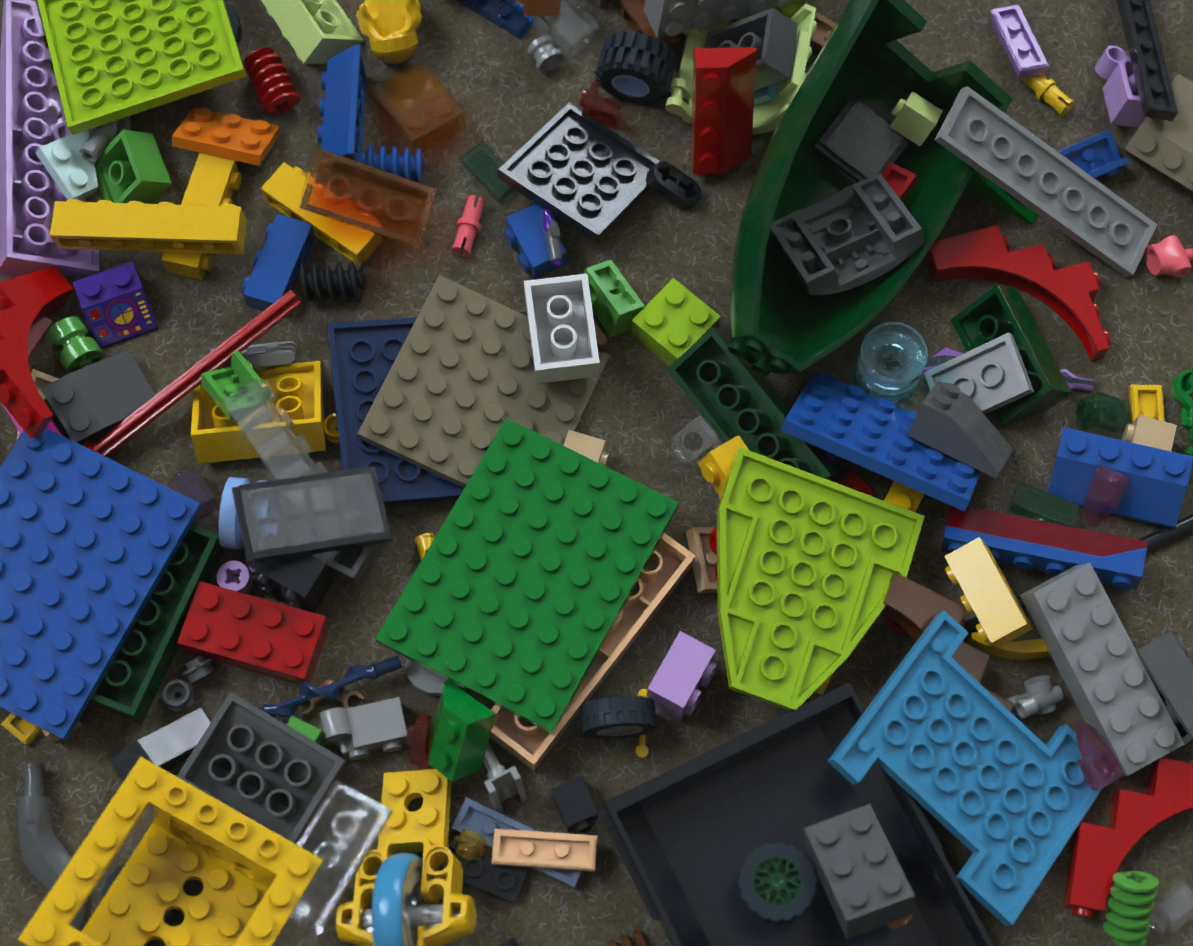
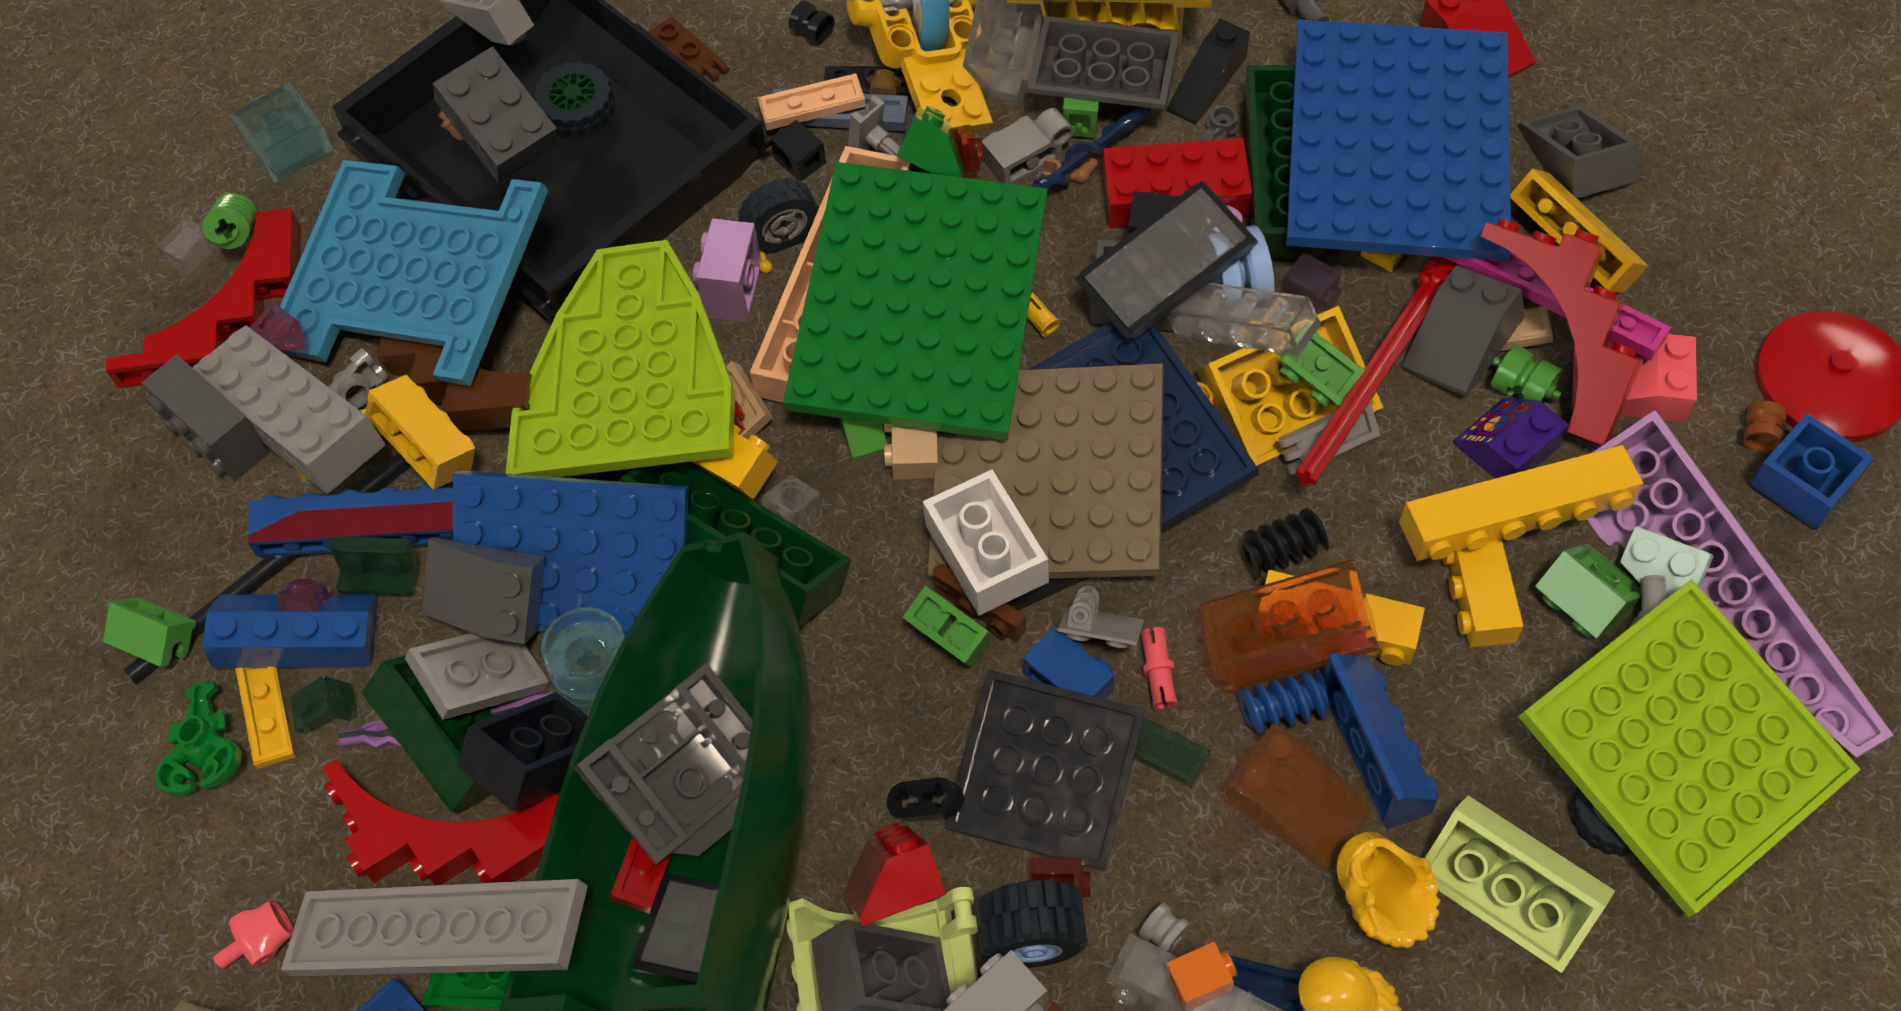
camera: 165 degrees right, 10 degrees down
(226, 136) = (1504, 665): orange plate -> none
(271, 81) = (1492, 757): red piece -> none
(278, 262) = (1355, 533): blue brick -> none
(497, 262) = (1085, 621): none -> light grey hinge
(552, 234) = (1044, 660): dark grey piece -> none
(673, 322) = (860, 627): lime brick -> none
(915, 118) = (626, 972): yellowish green brick -> none
(949, 292) = (524, 750): none -> black brick
(1150, 433) = (259, 676): tan brick -> none

